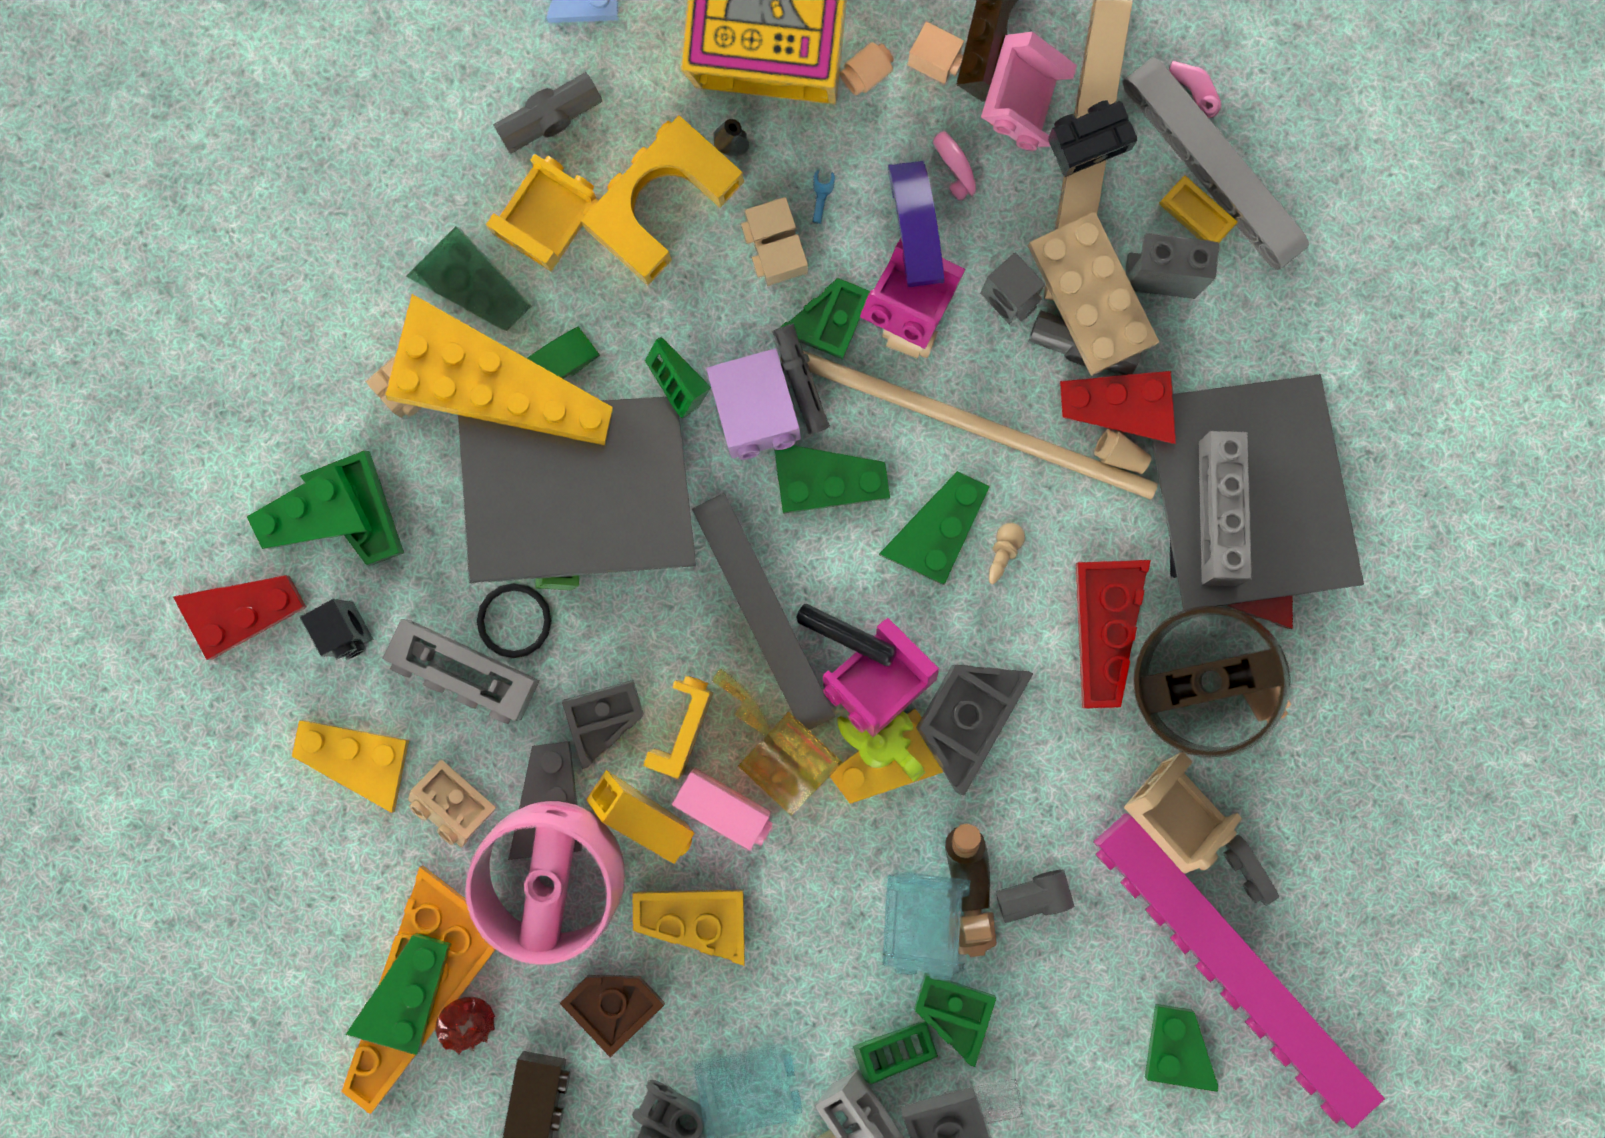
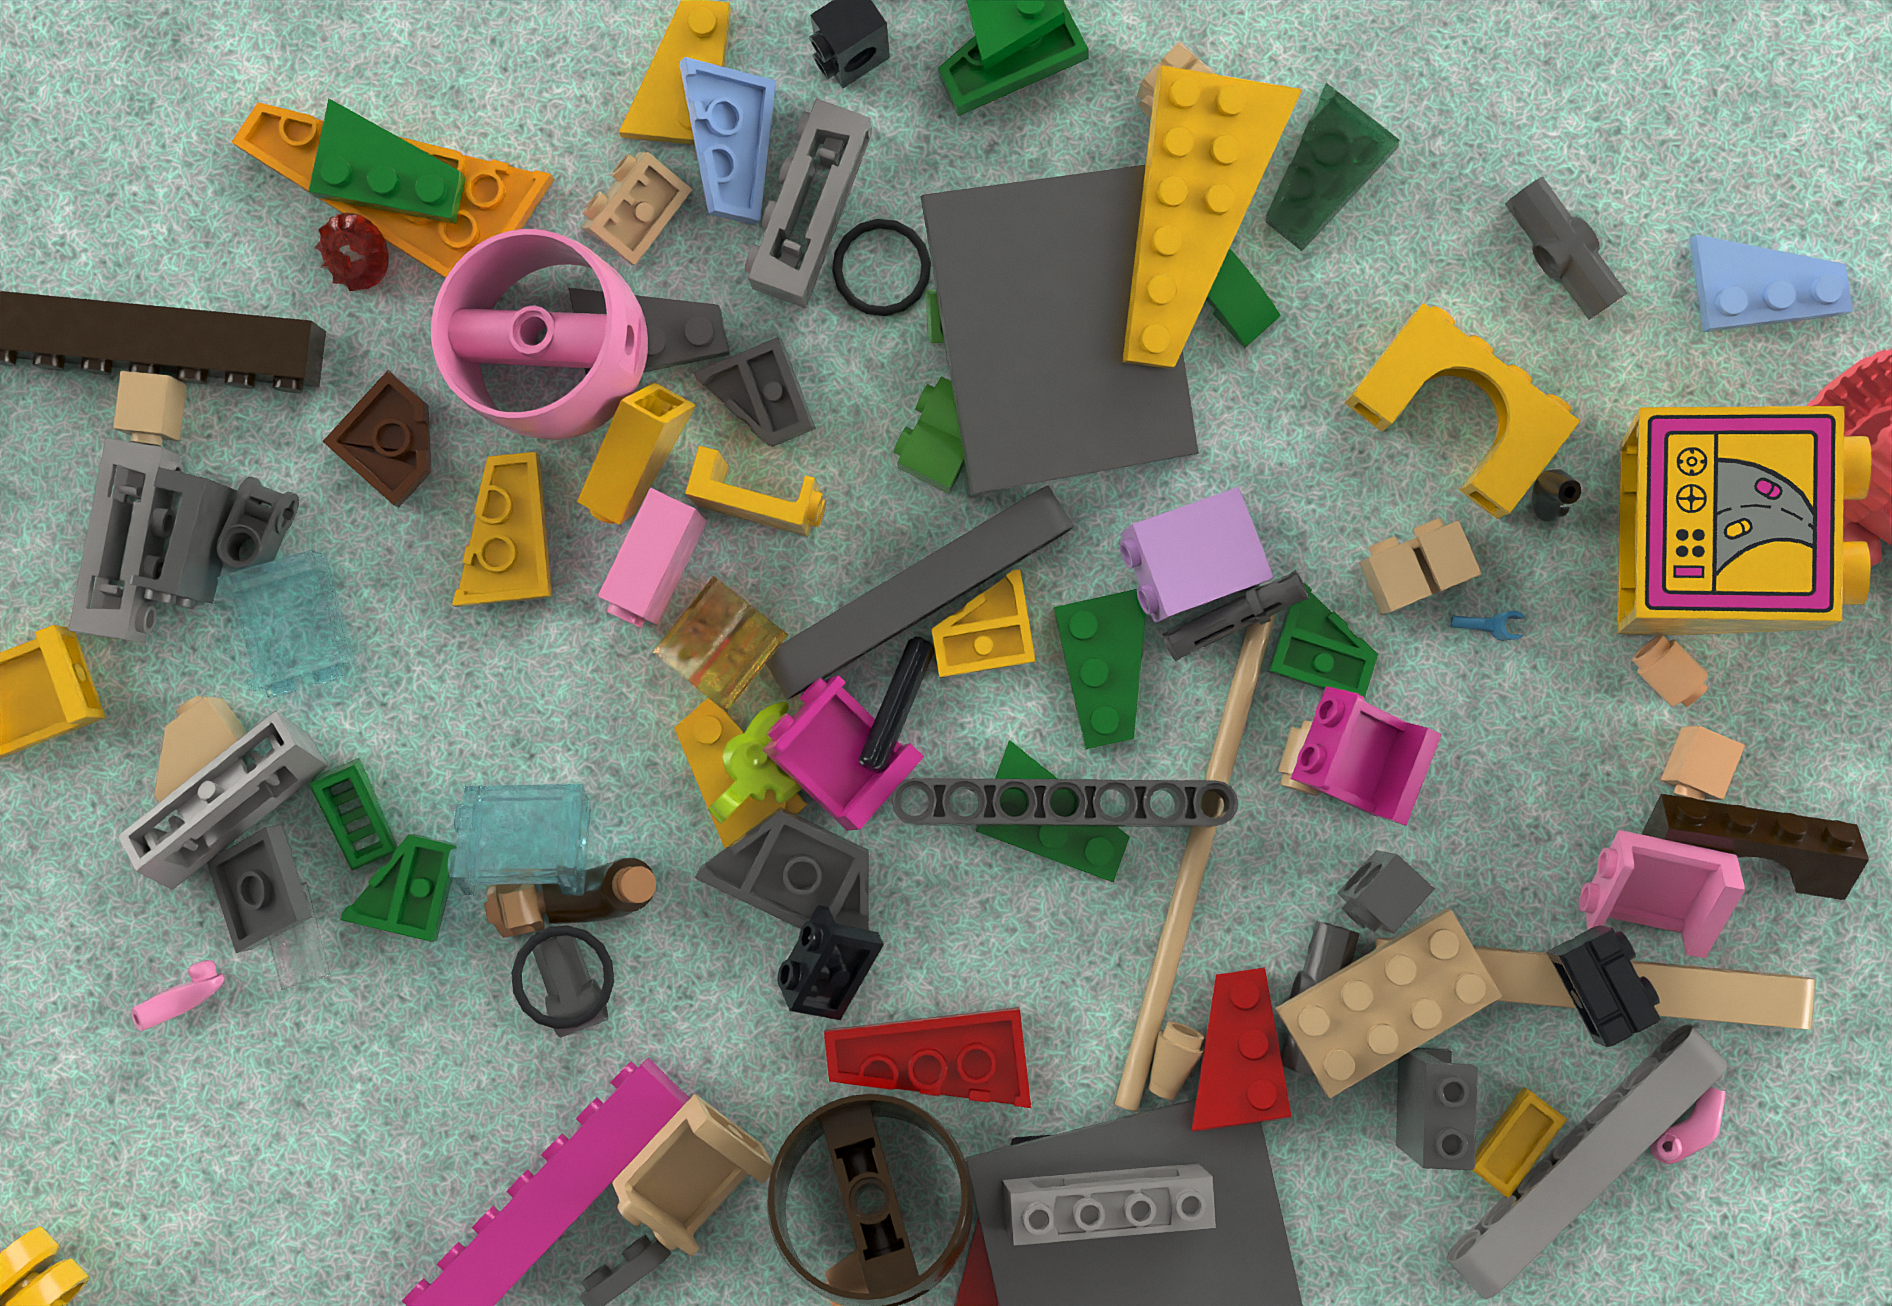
camera: 85 degrees right, 0 degrees up
(403, 726) = (731, 135): none -> light blue wing
(544, 212) = (1429, 255): yellow panel -> none
(654, 589) = (934, 445): none -> bright green brick
(676, 378) = (1221, 451): green slope -> none
(750, 709) = (785, 585): clear yellow slope -> none
(797, 564) = (986, 632): none -> yellow wing
(917, 223) = (1462, 754): dark purple slope -> none
(927, 498) = (1087, 793): none -> dark grey beam
(958, 165) = (1550, 805): bright pink arm -> none
(1009, 539) = (1044, 914): tan bar -> none
(1036, 702) = (827, 966): none -> black bracket
(1064, 898) = (599, 1004): none -> black piece
(1178, 1050) = (380, 1191): green wing -> none

